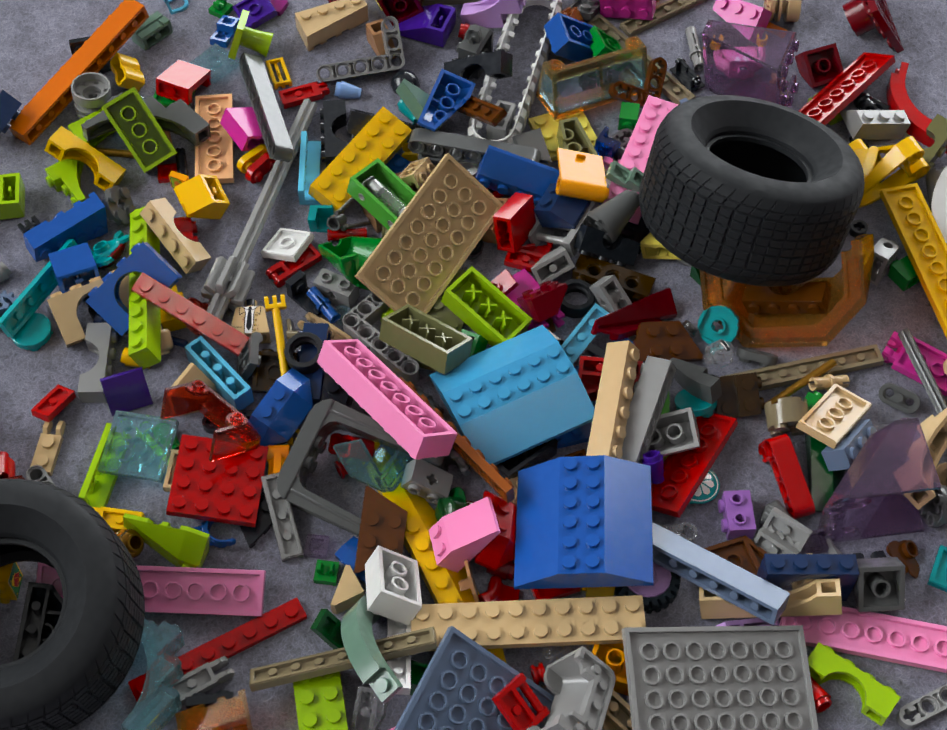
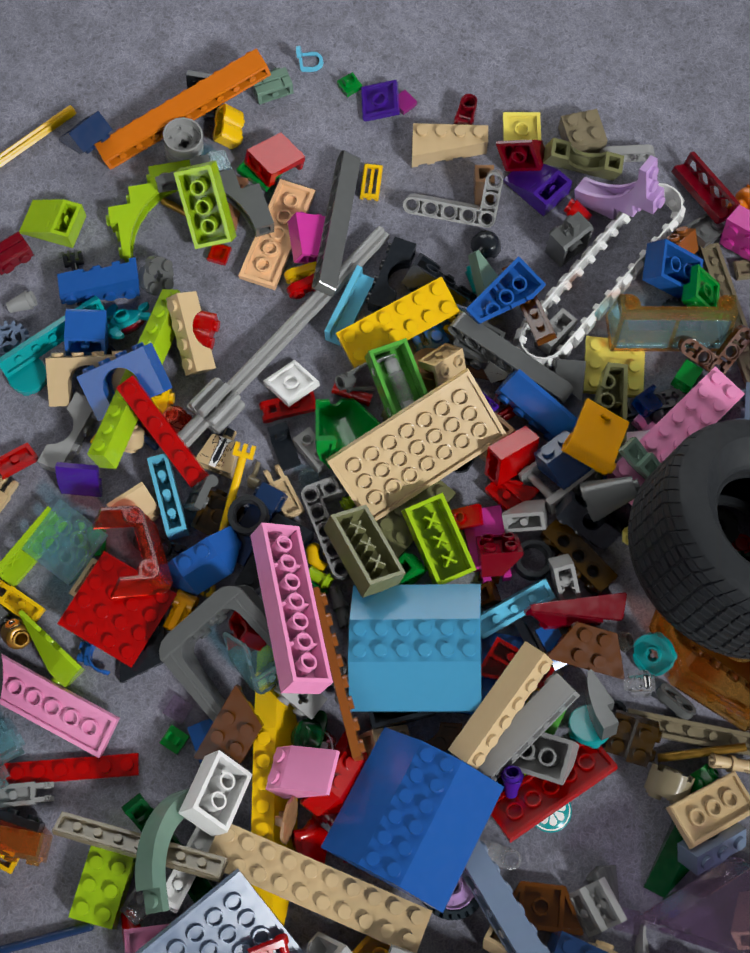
camera: 25 degrees right, 15 degrees up
(66, 145) = (132, 193): yellow arch -> none
(177, 178) = (224, 269): light orange tile -> none
(181, 161) = (236, 249): black axle -> none
(202, 197) = (234, 299): yellow slope -> none
(217, 61) = (317, 146): clear light blue tile -> none
(225, 31) = (342, 113): blue slope -> none
(249, 38) = (358, 134): lime plant -> none
(282, 520) = (157, 674): light grey tile -> none
(295, 96) = (385, 217): red hinge -> none
(318, 217) = (334, 365): teal panel -> none
(323, 304) = (291, 453): blue pin -> none
(347, 91) = (426, 230): light blue cone -> none
(347, 591) = (182, 770): tan slope -> none
(495, 64) = (572, 272): black arch -> none
(537, 673) = (309, 930): red bush -> none
(737, 514) = (569, 860): medium lavender brick -> none
(788, 474) = (637, 846): red beam -> none

